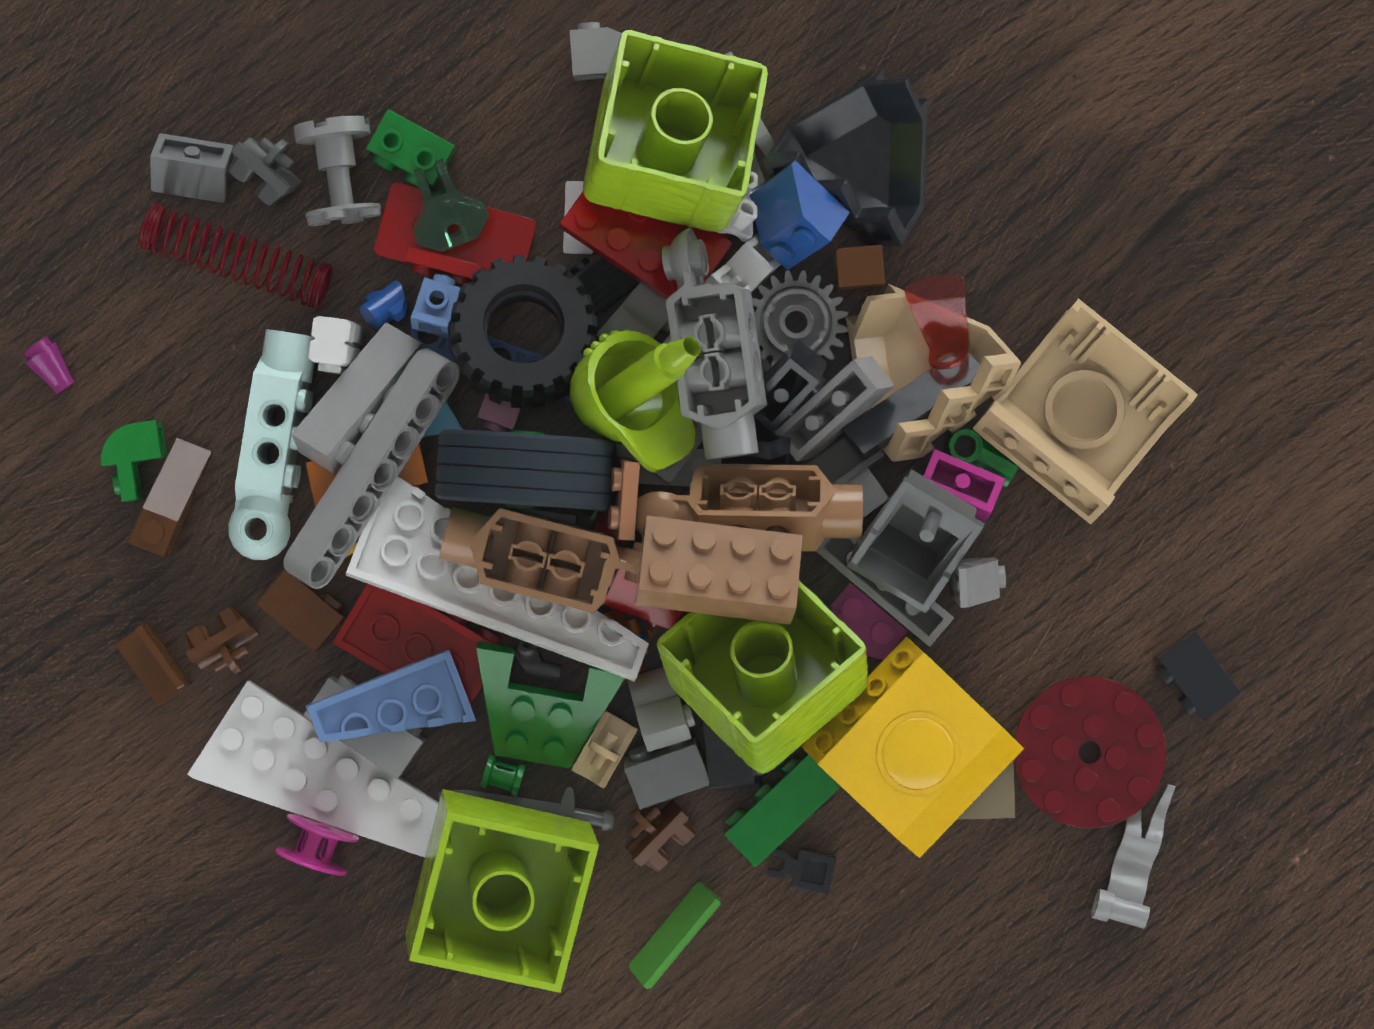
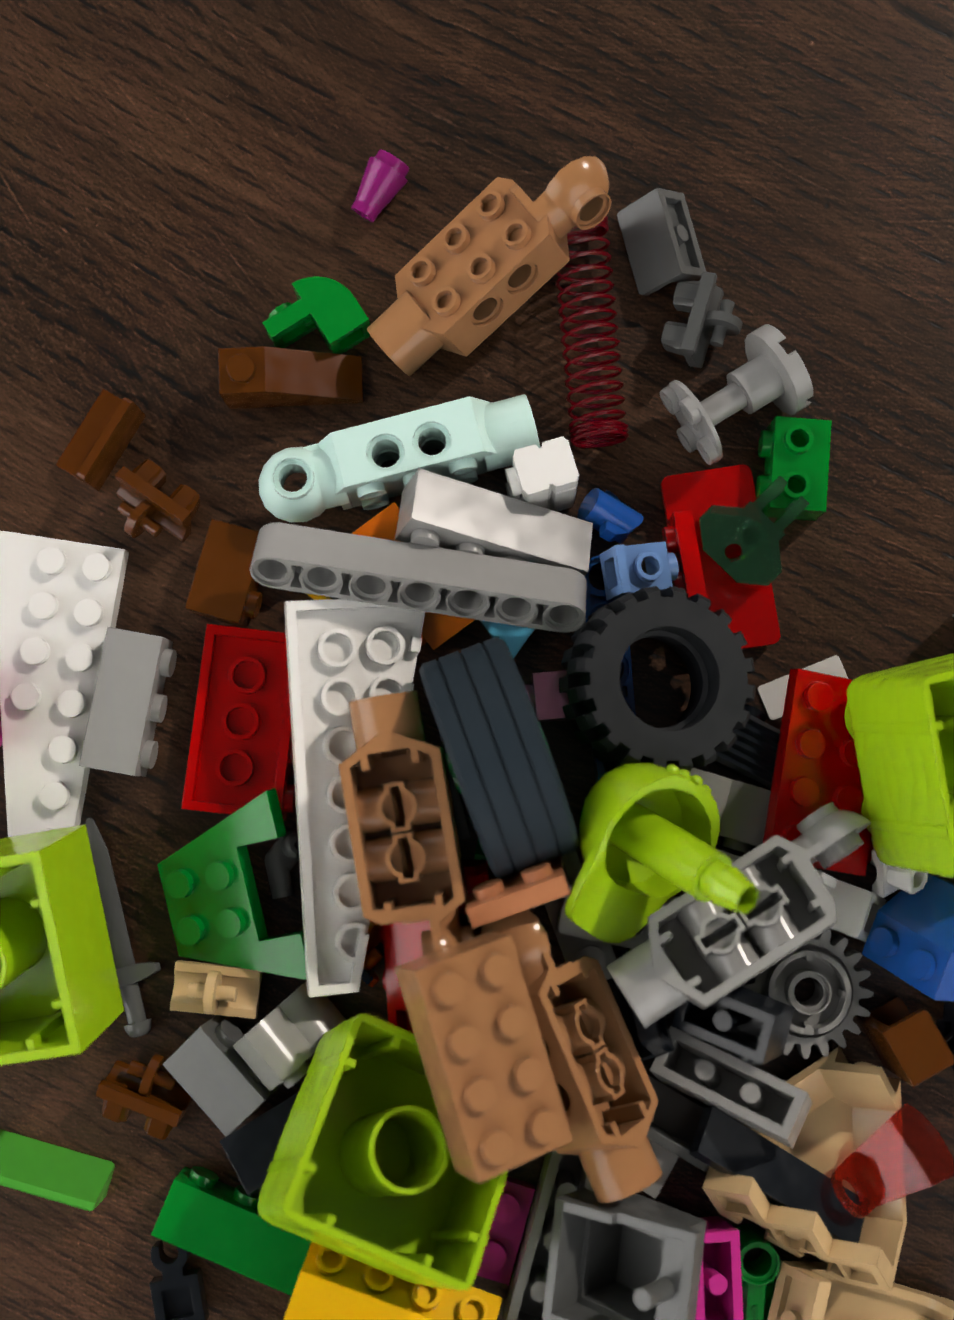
camera: 70 degrees right, 5 degrees down
(156, 315) = (488, 264): none -> medium nougat brick
(403, 699) = (172, 731): medium blue wing -> none
(502, 775) = (137, 883): green bush -> none

